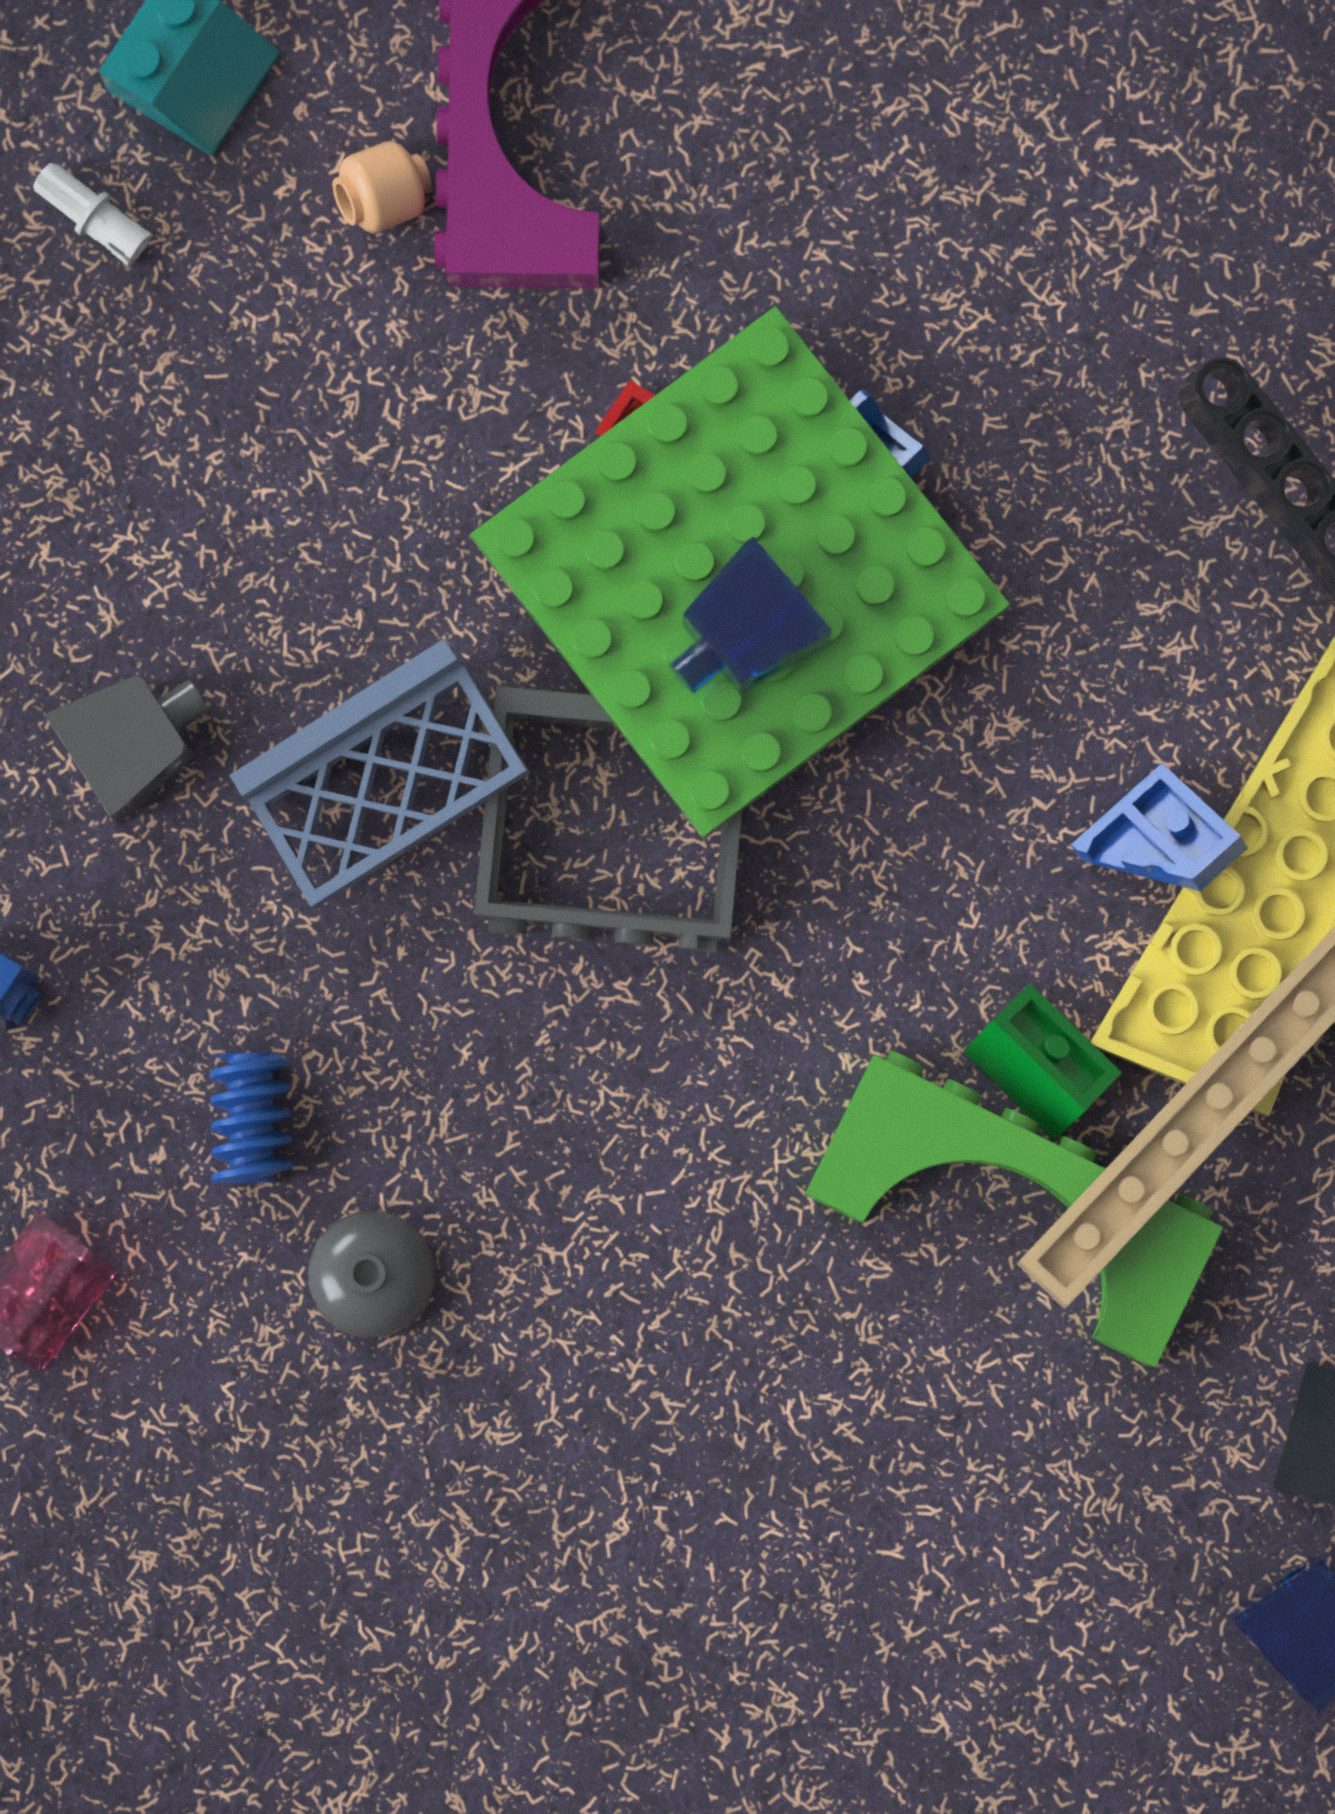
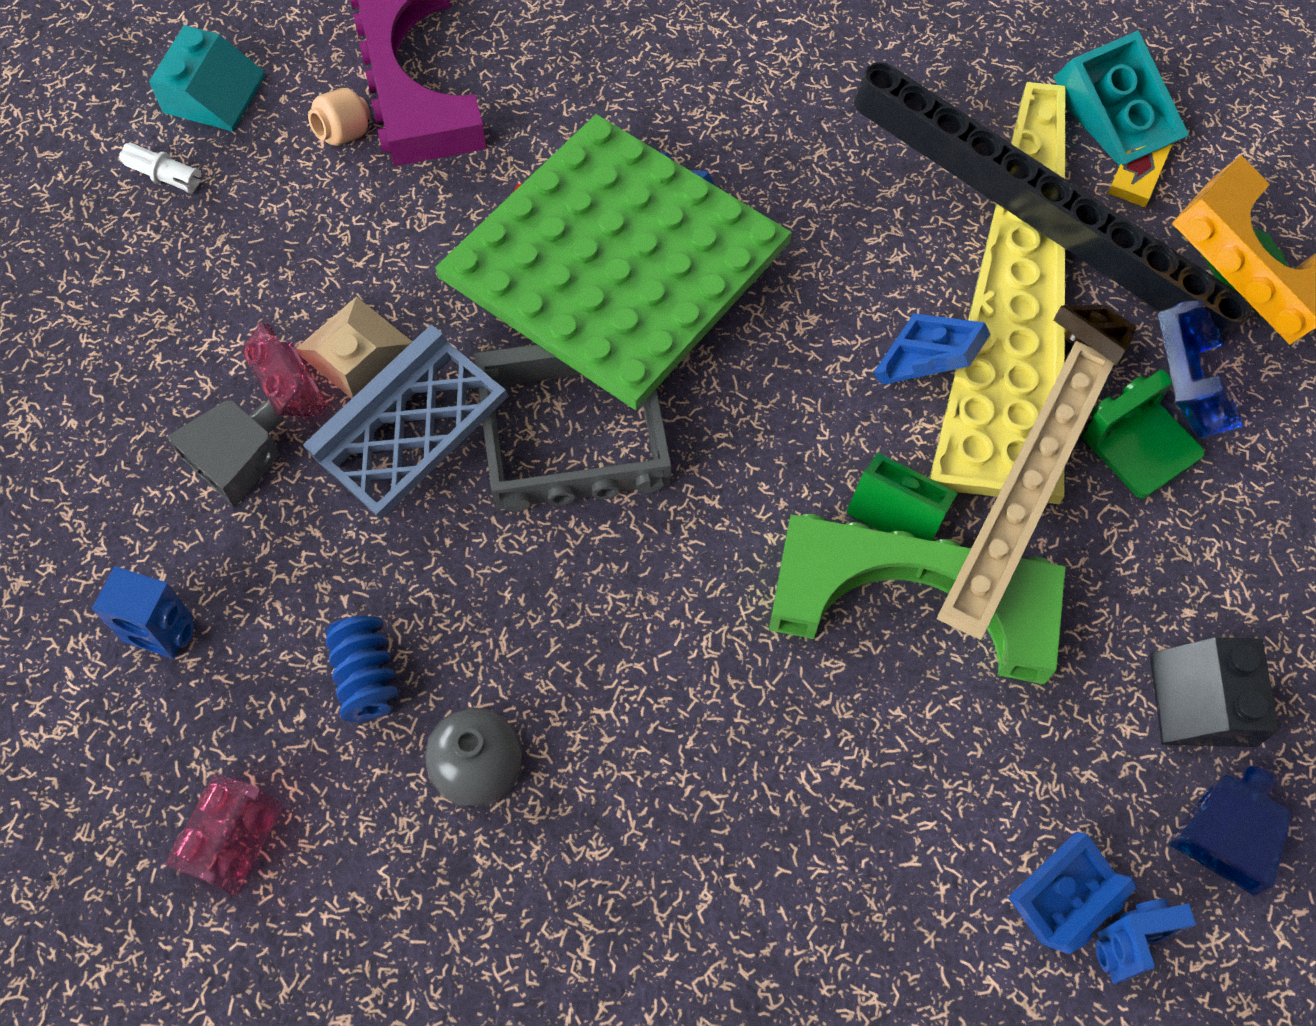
camera: 20 degrees left, 20 degrees down
(220, 644) = (282, 374): none -> clear pink bracket
(331, 606) = (353, 347): none -> tan slope
(748, 624) = (631, 263): clear blue torso -> none
(1073, 1649) = (1071, 895): none -> blue bracket
(1140, 1715) = (1124, 944): none -> blue bracket

